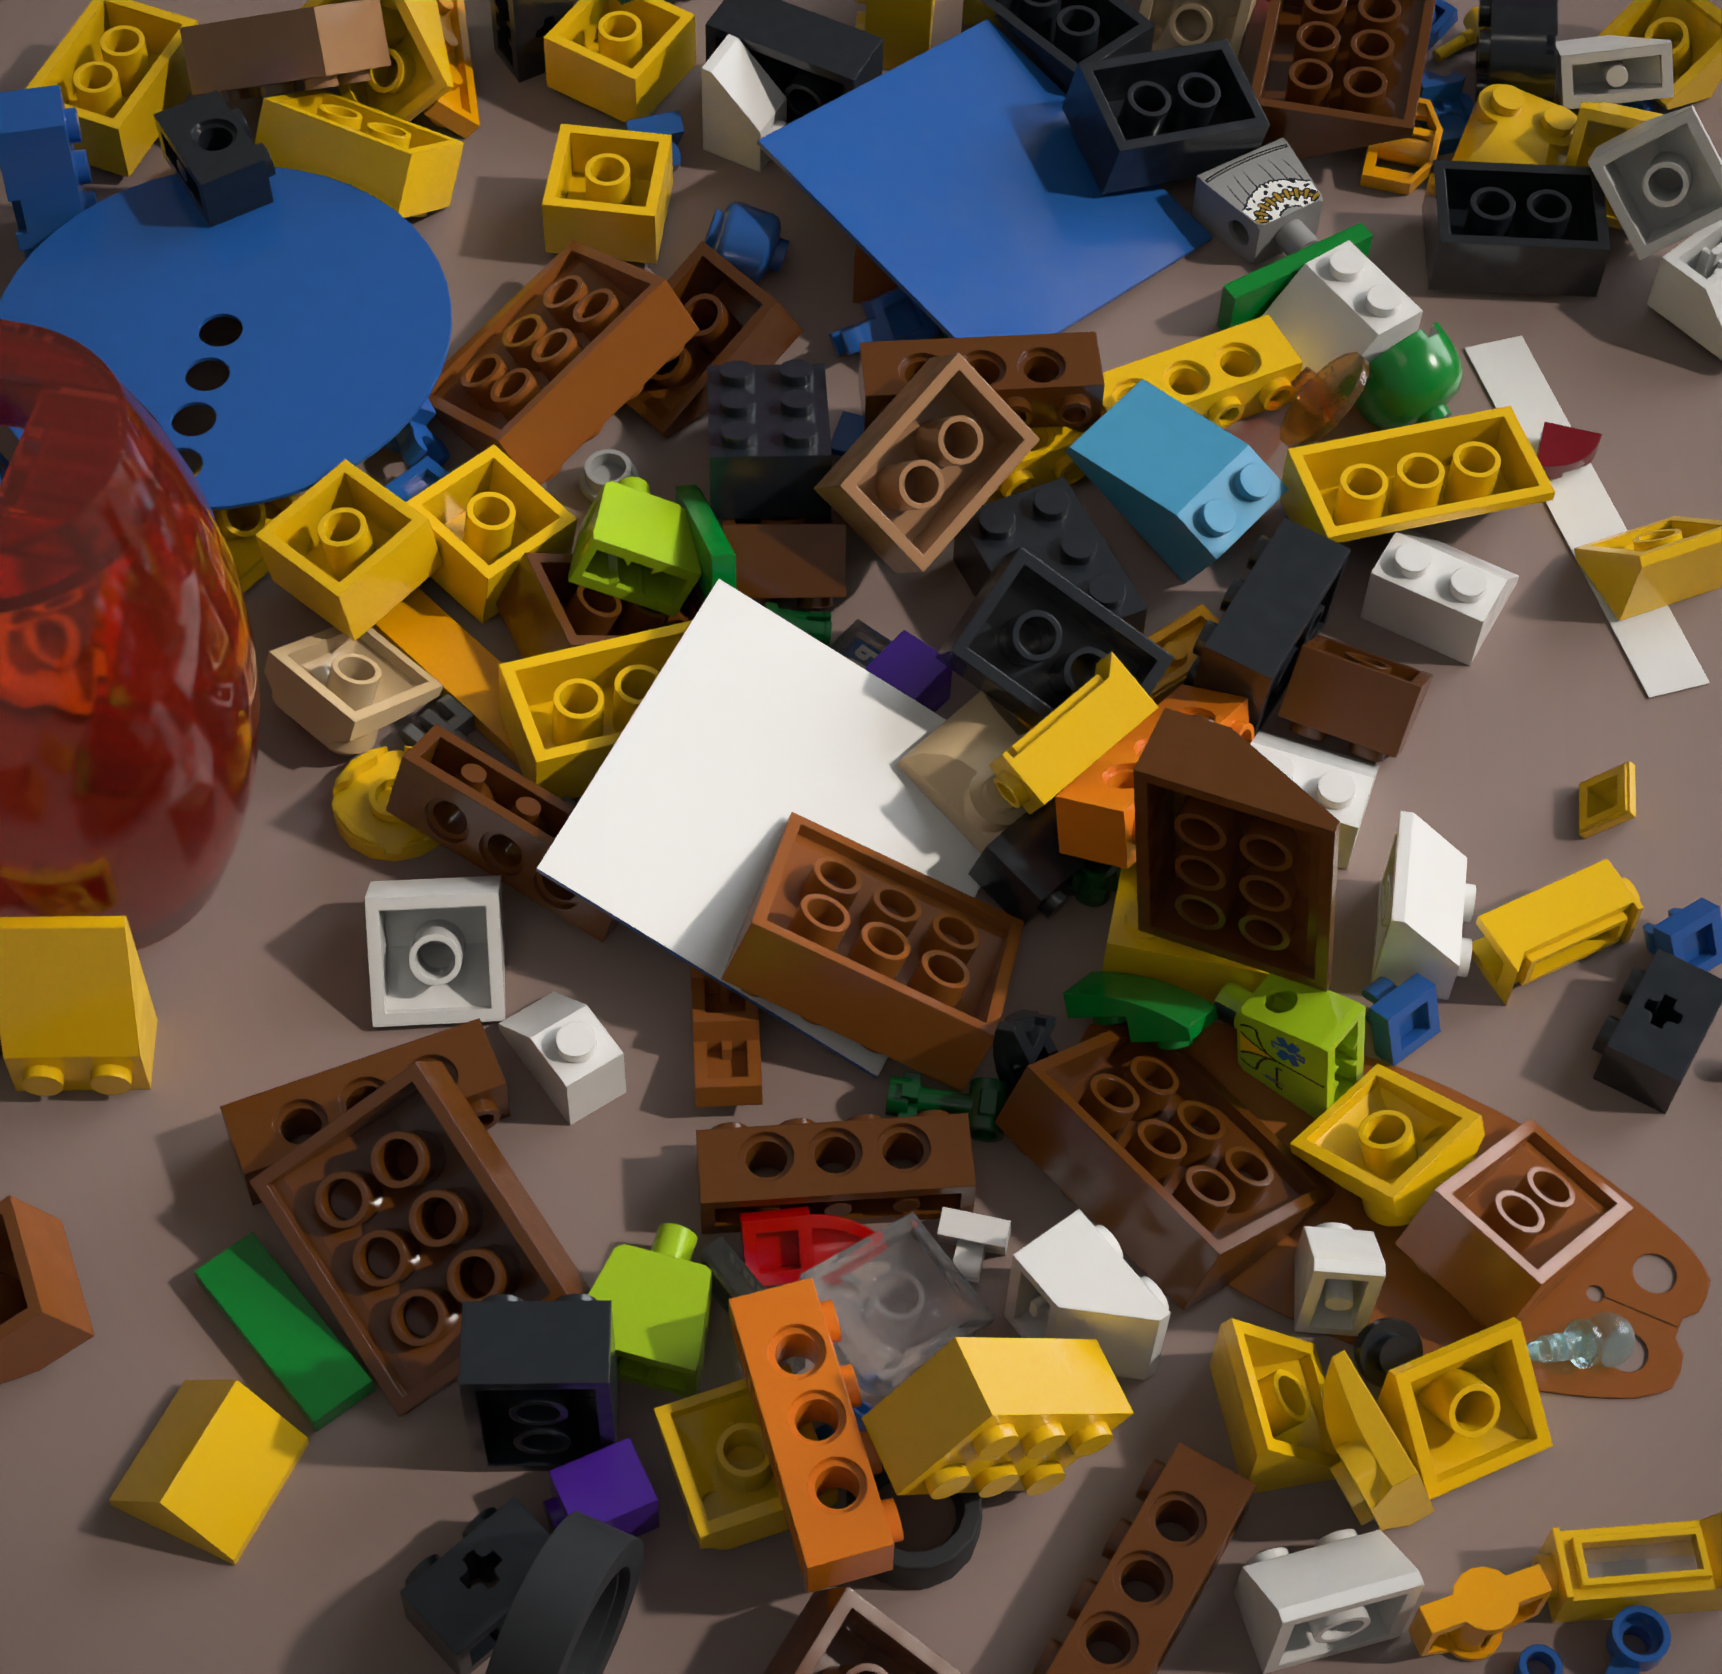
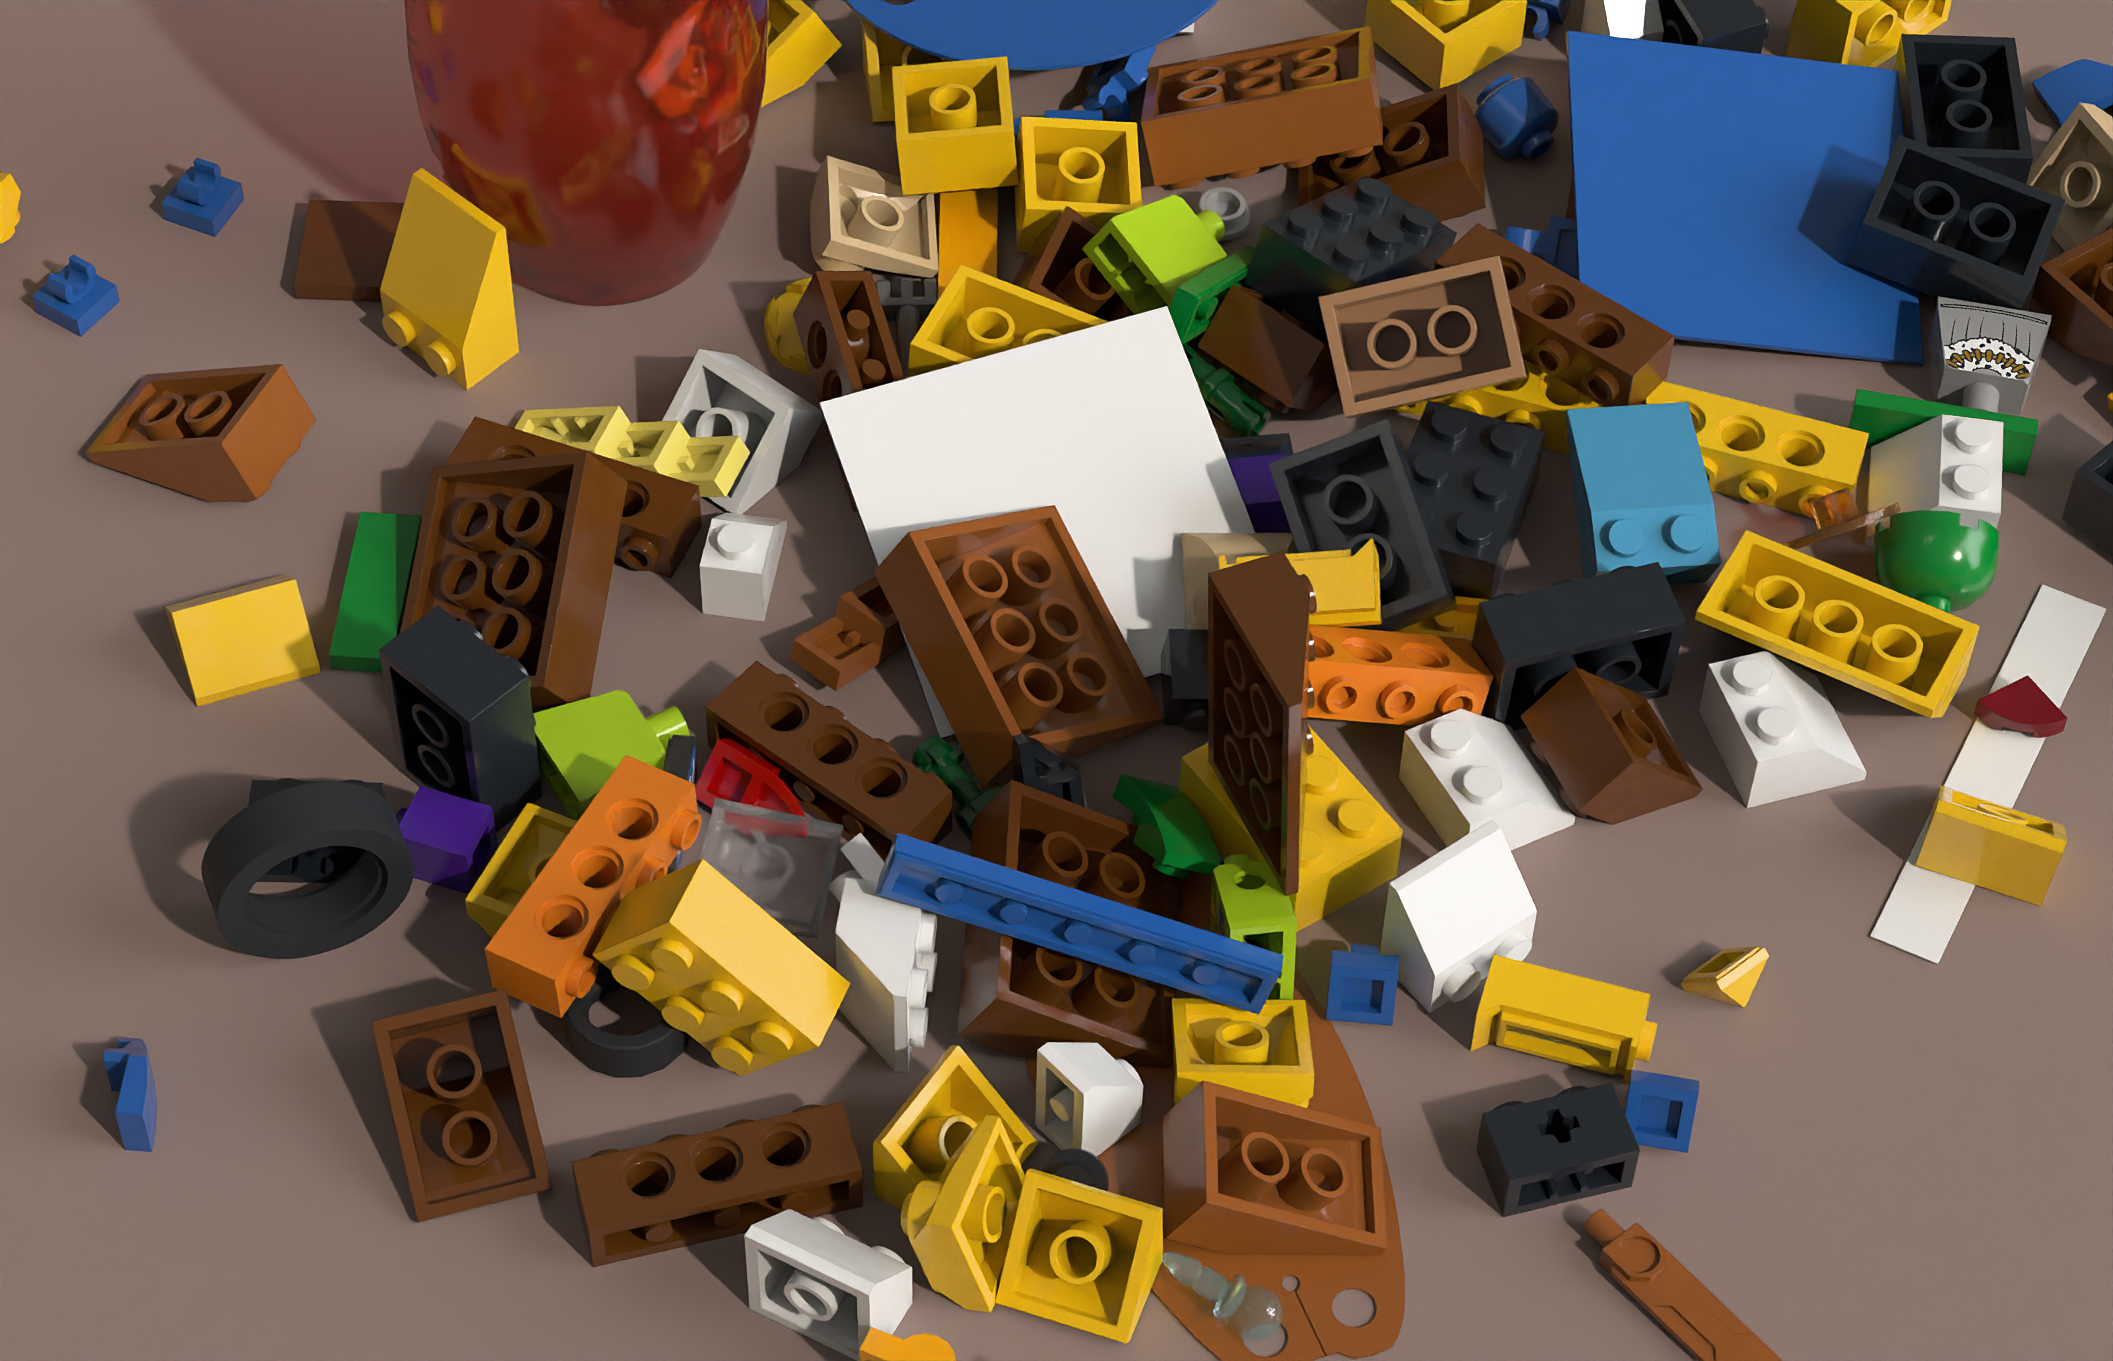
camera: 45 degrees right, 5 degrees down
(382, 1021) = (654, 446): none -> light yellow slope
(1213, 1144) = (1078, 924): none -> blue tile

